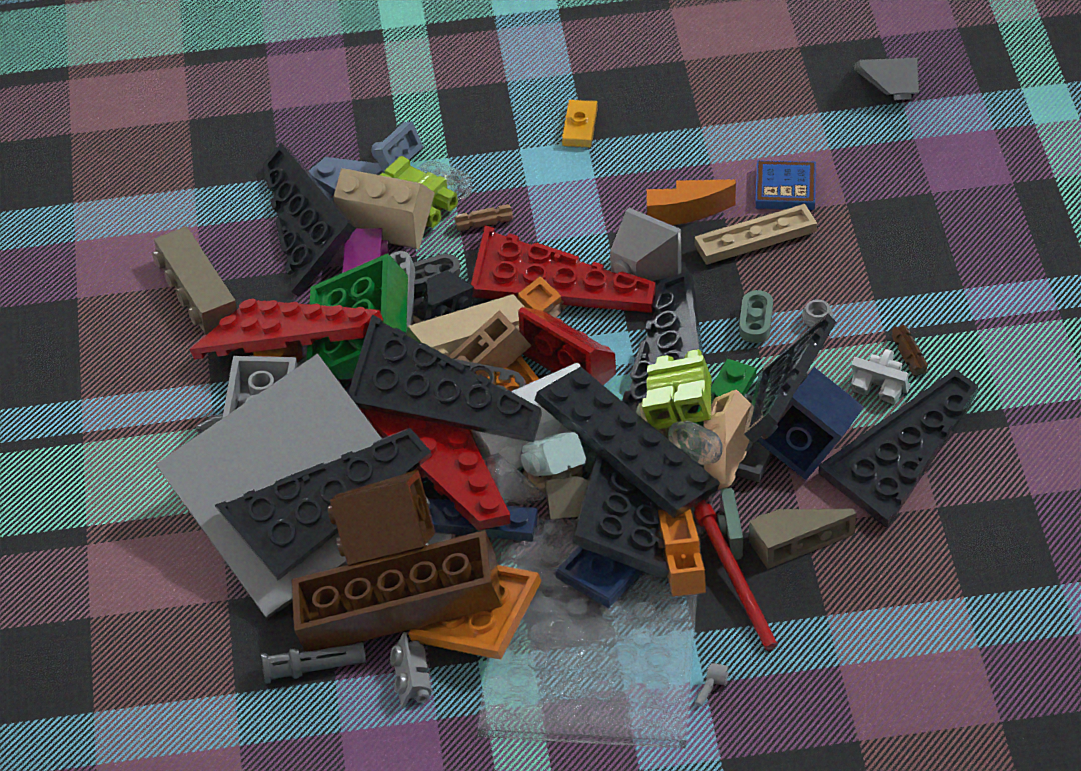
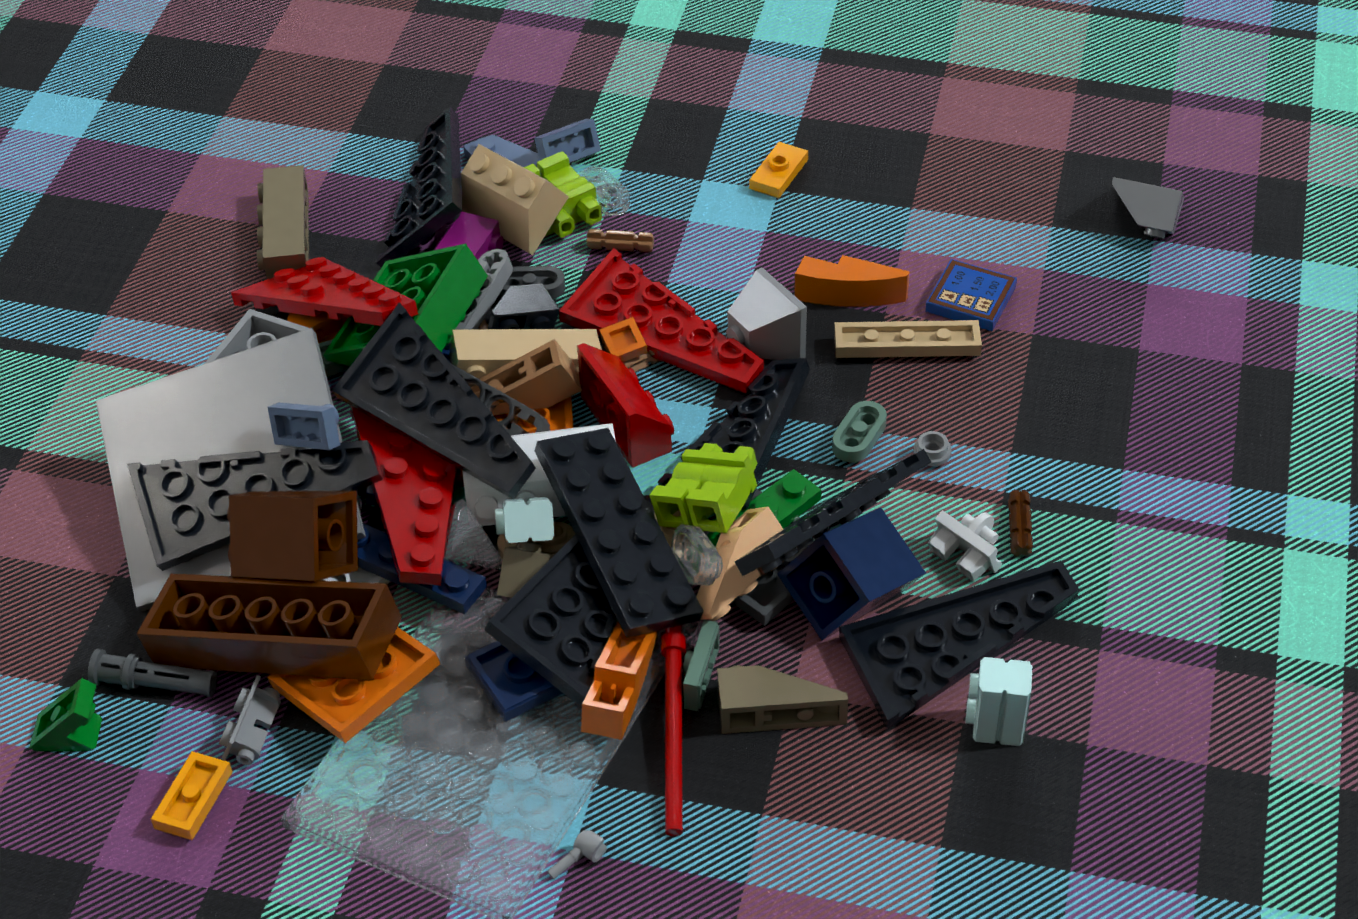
camera: 20 degrees right, 0 degrees up
(268, 713) = (68, 721): none -> green slope
(355, 431) = (304, 425): none -> sand blue tile
(399, 735) = (191, 795): none -> light orange plate
(964, 481) = (999, 701): none -> light aqua brick

